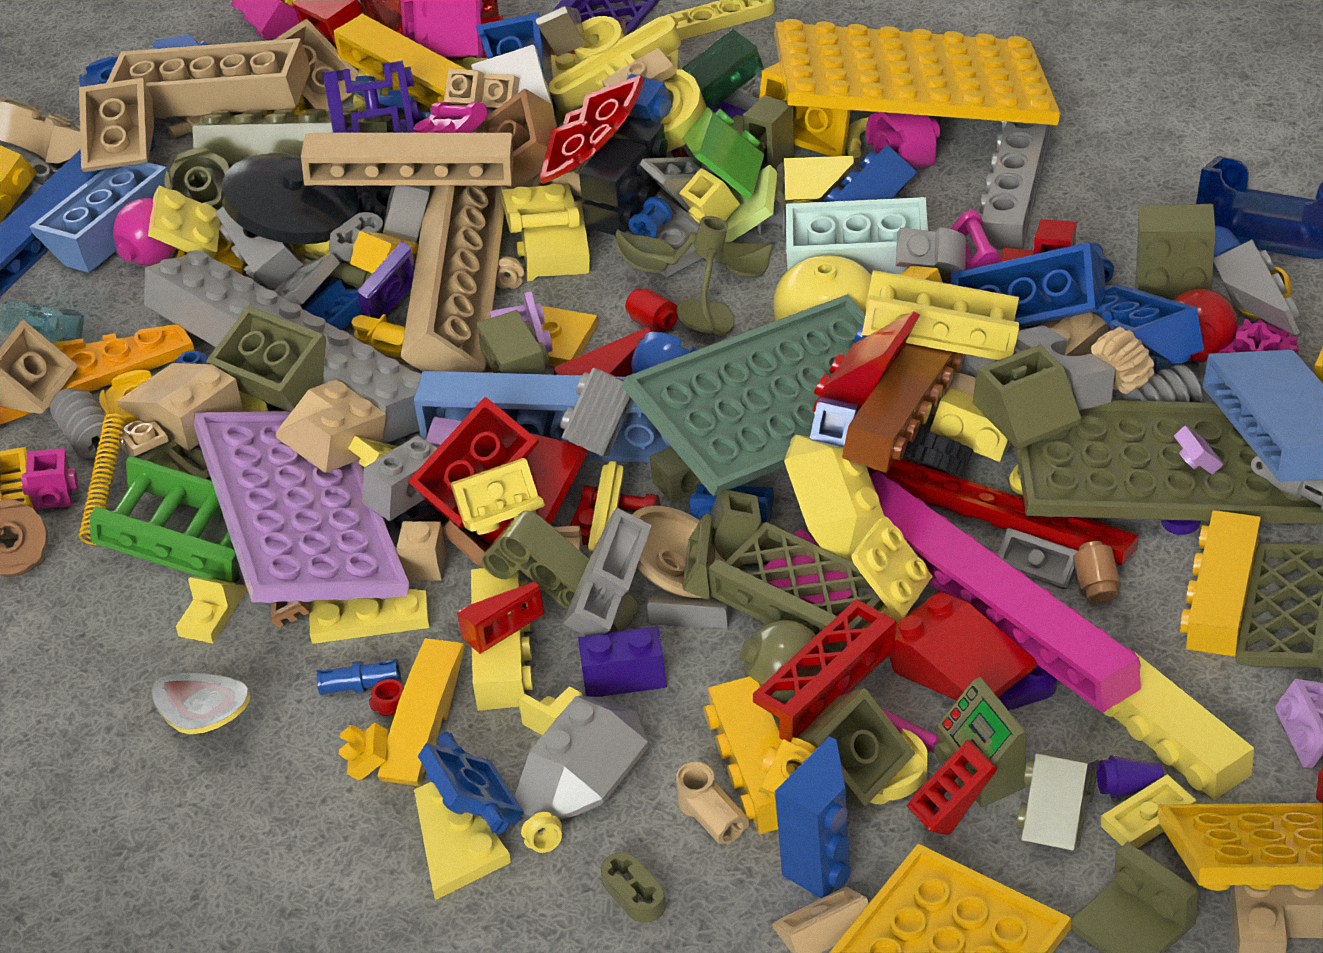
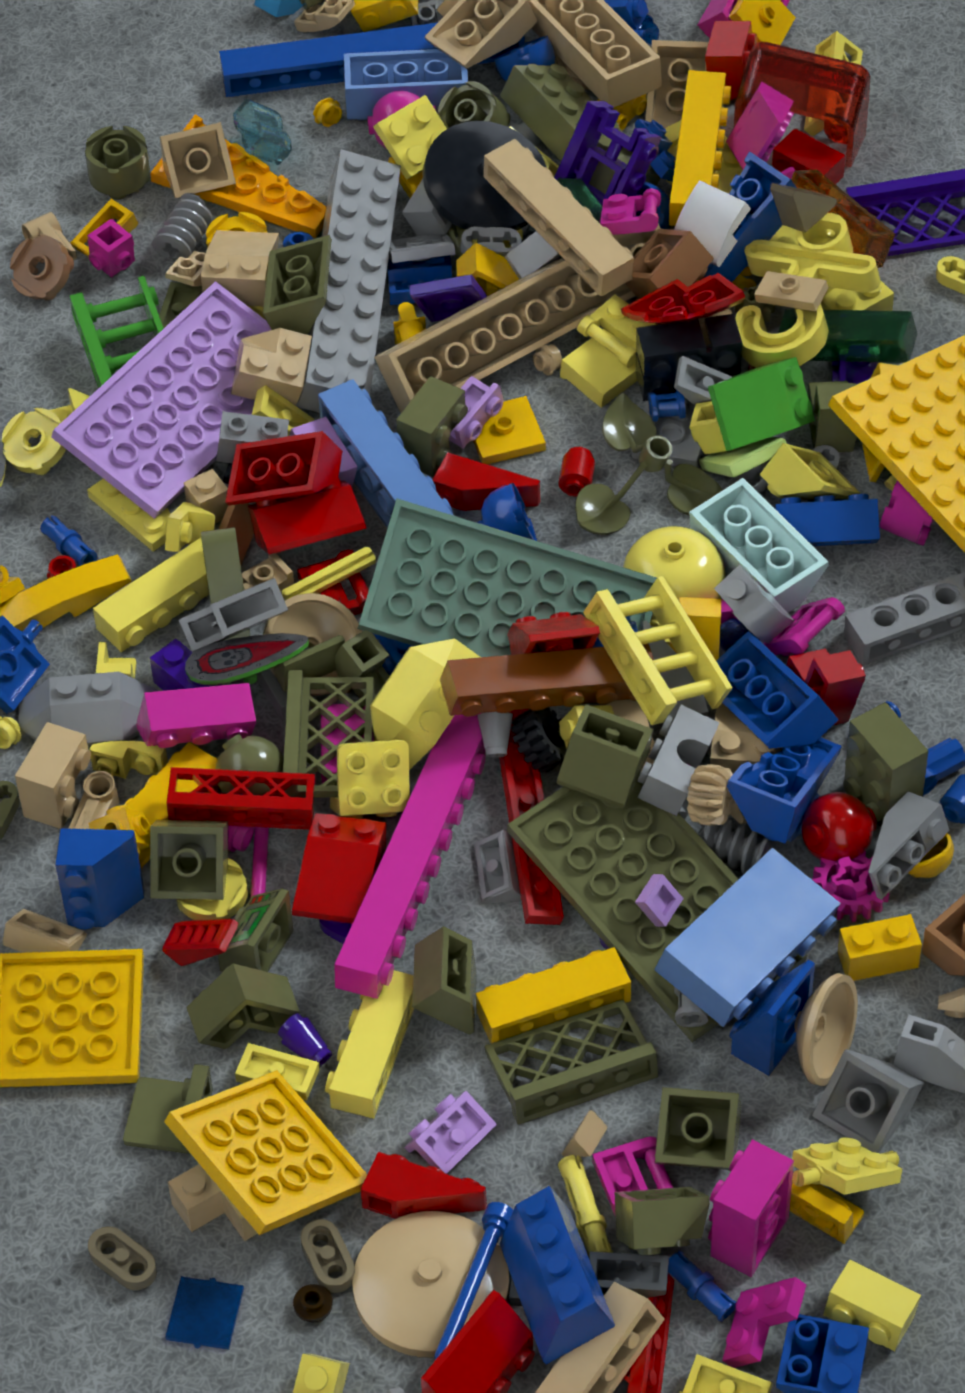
camera: 50 degrees right, 10 degrees up
(65, 279) = (327, 112): none -> yellow plate
(85, 520) = (98, 298): yellow piece -> none
(174, 132) = (537, 51): none -> blue cylinder
(225, 623) = (19, 450): none -> light yellow plate
(447, 573) = (186, 525): none -> light yellow slope
(474, 86) = (682, 204): tan slope -> none
(487, 621) = (153, 582): red slope -> none
(496, 496) = (251, 505): light yellow bracket -> none
(598, 412) = (374, 505): light grey brick -> none
(652, 102) = (759, 313): blue brick -> none
(652, 805) = (49, 775): none -> tan slope
(661, 592) = (242, 657): none -> shield
(664, 754) = (121, 756): none -> light yellow slope
(692, 662) = (196, 715): none -> dark pink slope
(832, 421) = (484, 643): brick -> none
(910, 474) = (495, 732): none -> light grey cone
(1097, 572) = (498, 910): medium nougat brick -> none
(1162, 628) = (446, 979): none -> olive slope

